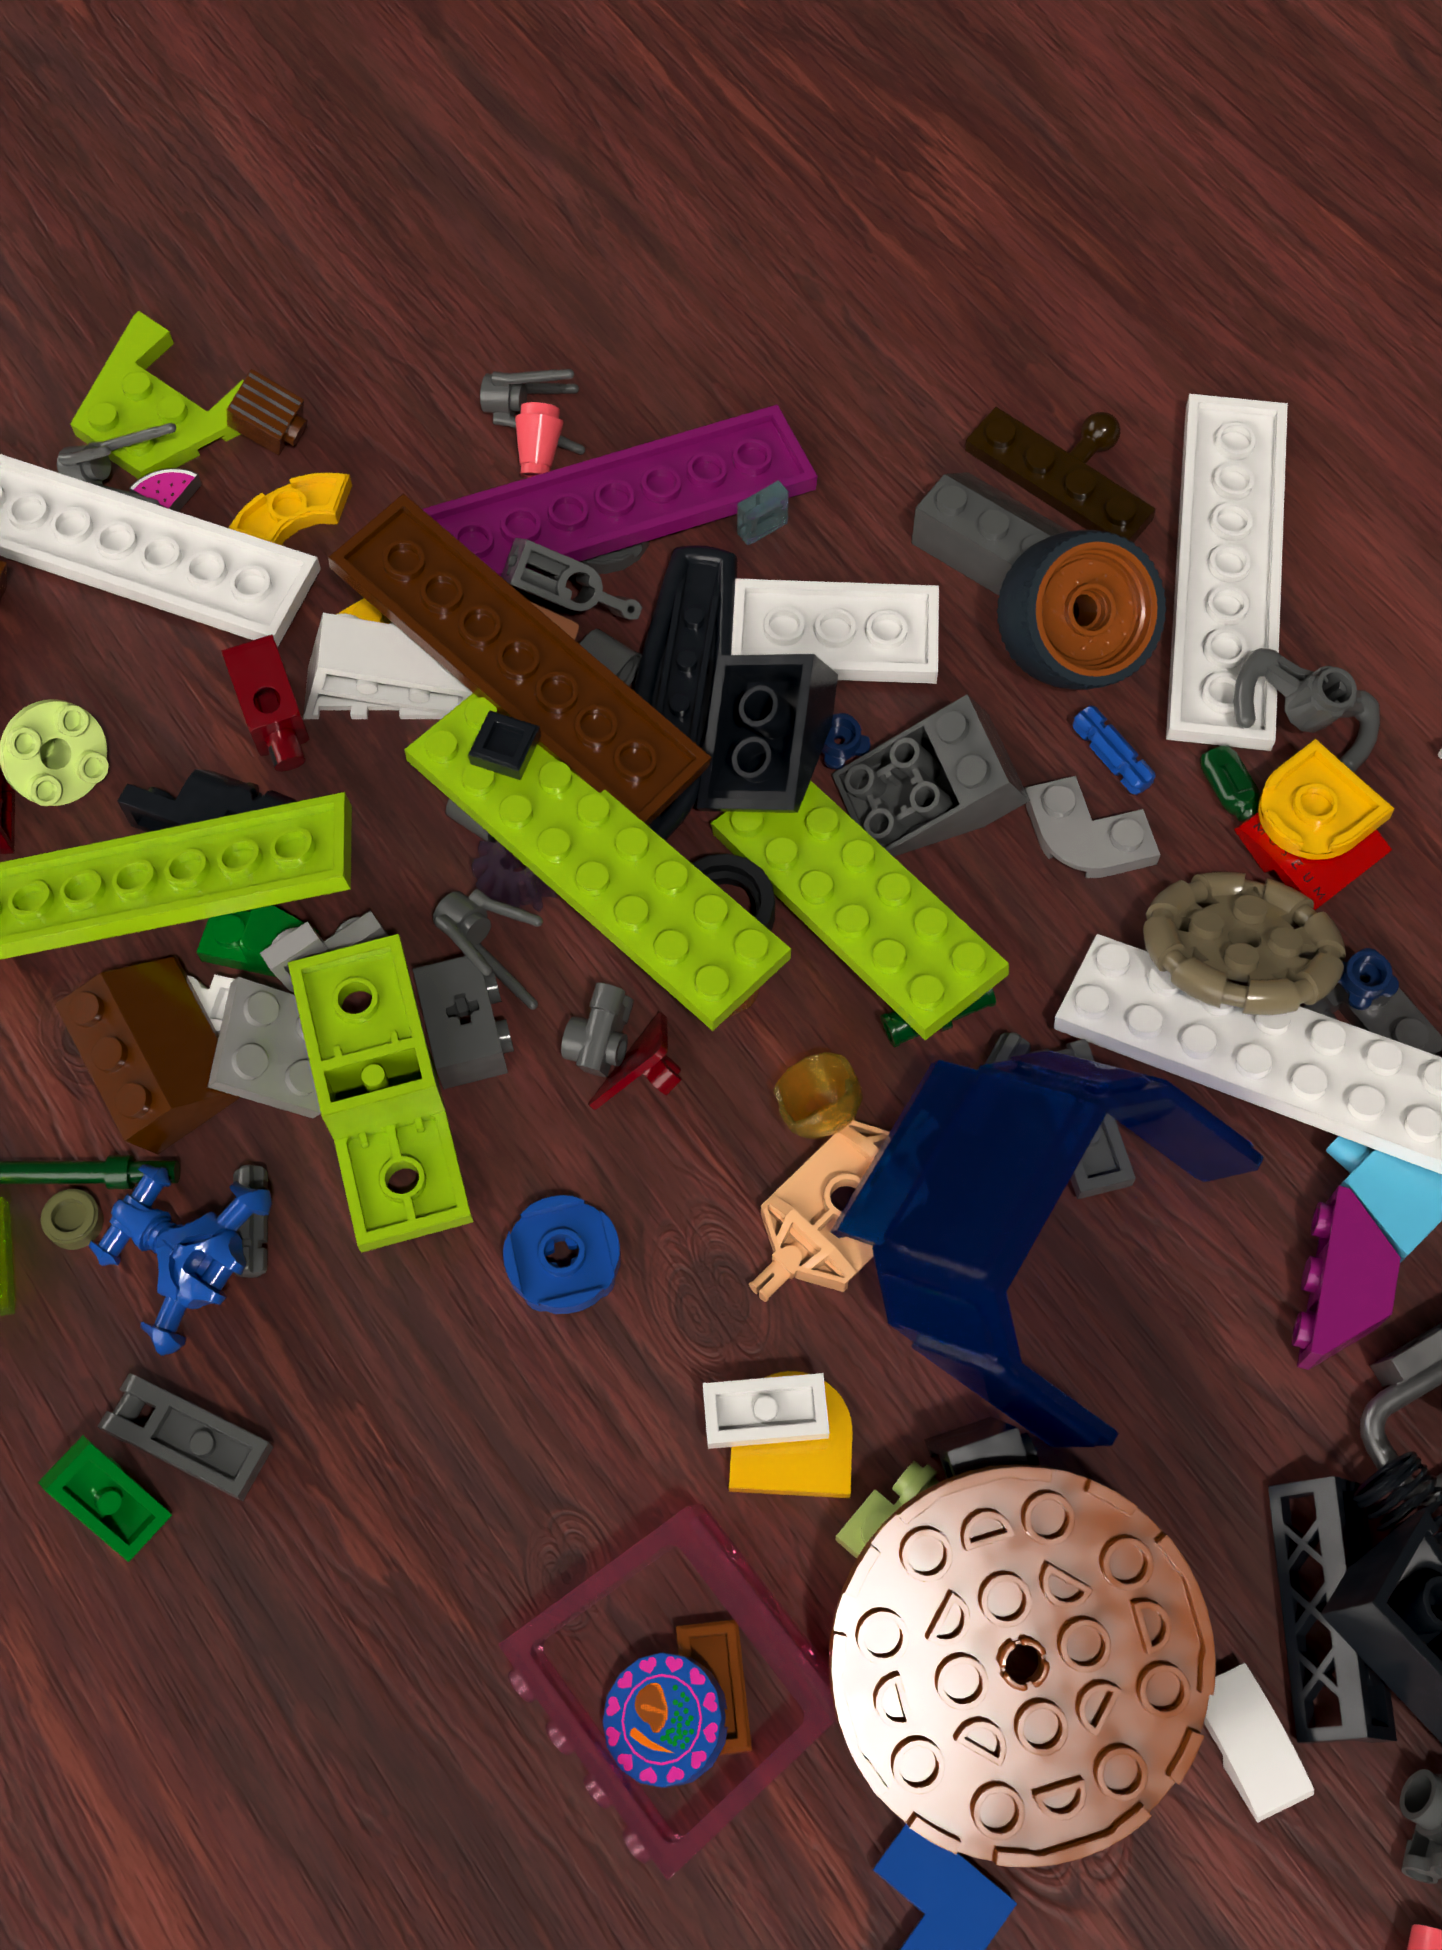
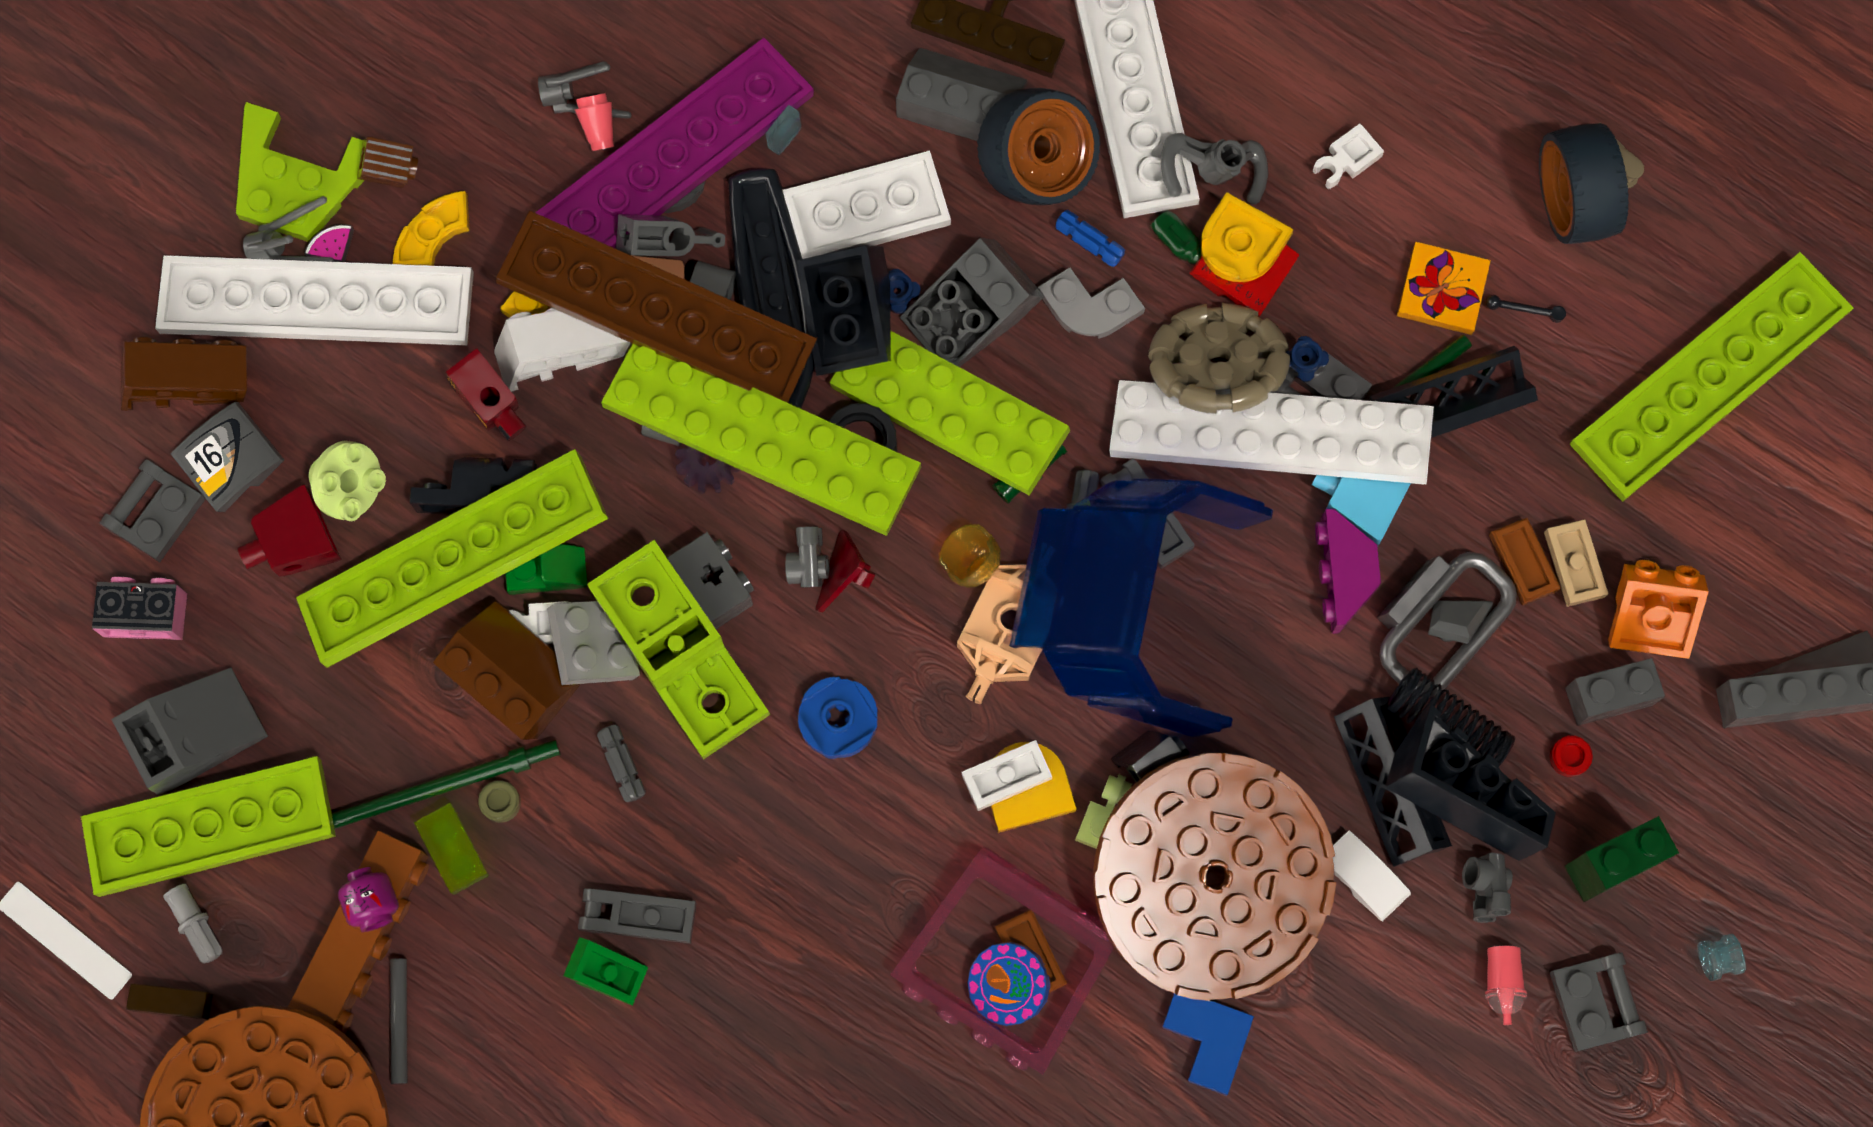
camera: 20 degrees left, 10 degrees up
(191, 1257) = (597, 799): blue piece -> none
(305, 942) = (615, 549): light grey plate -> none
(467, 925) = (689, 512): dark grey plant -> none
(504, 745) = (673, 379): black tile -> none

